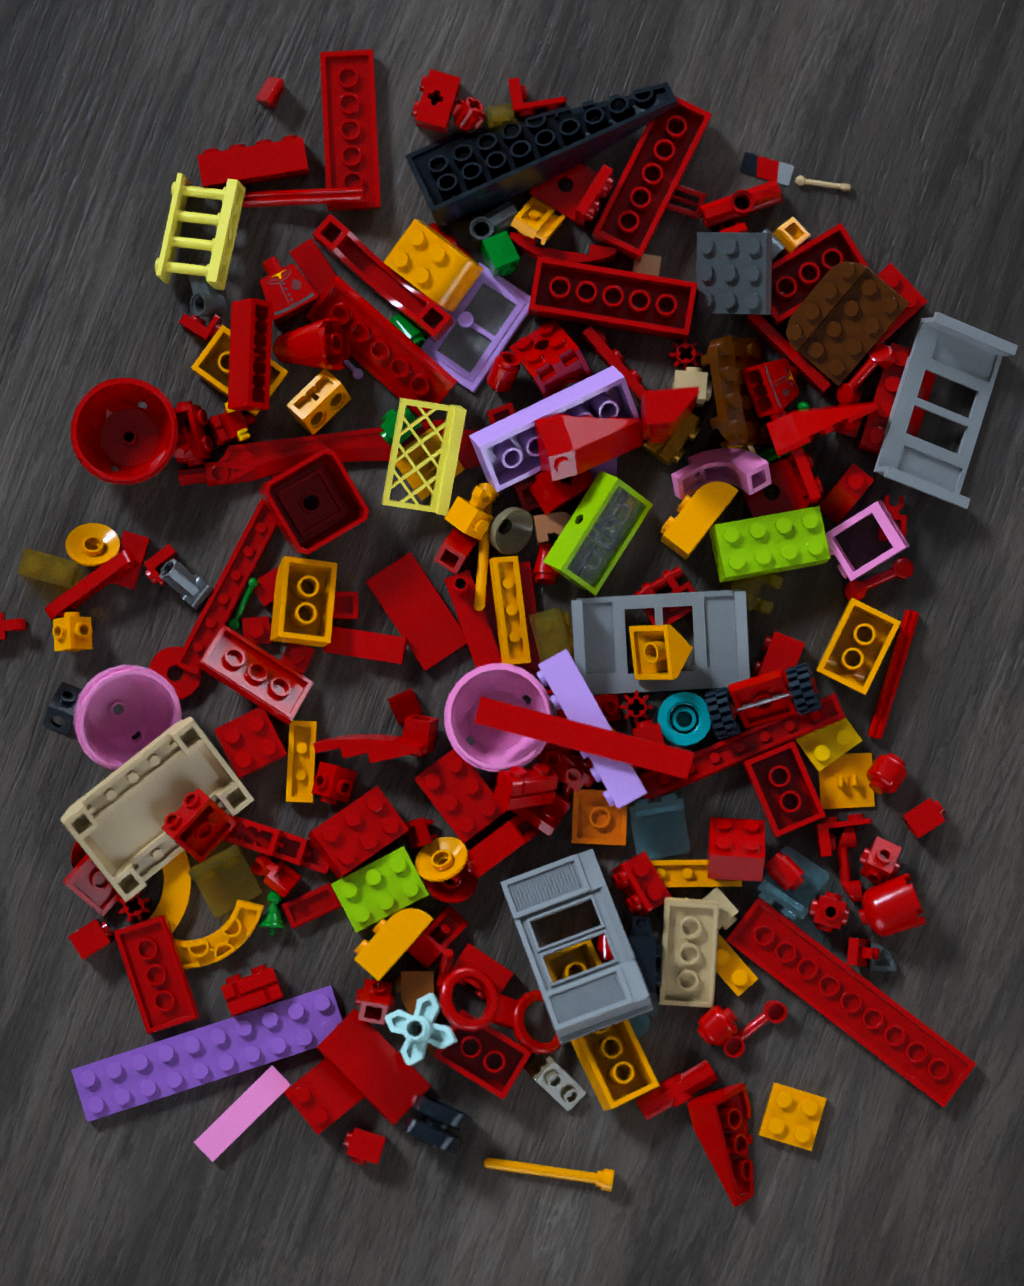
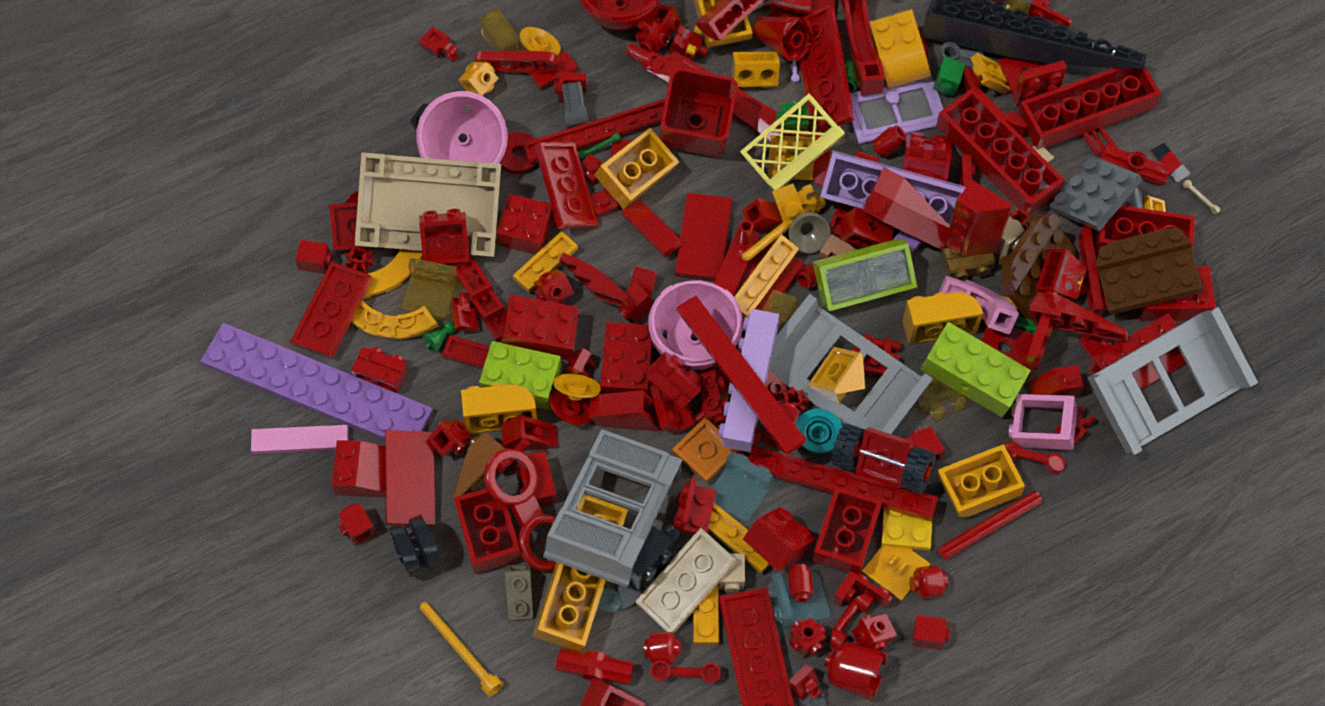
camera: 40 degrees right, 20 degrees down
(346, 605) = (661, 195): red plate -> none
(407, 1024) = (460, 473): light aqua plant -> none
(879, 355) = (1154, 313): red bar -> none

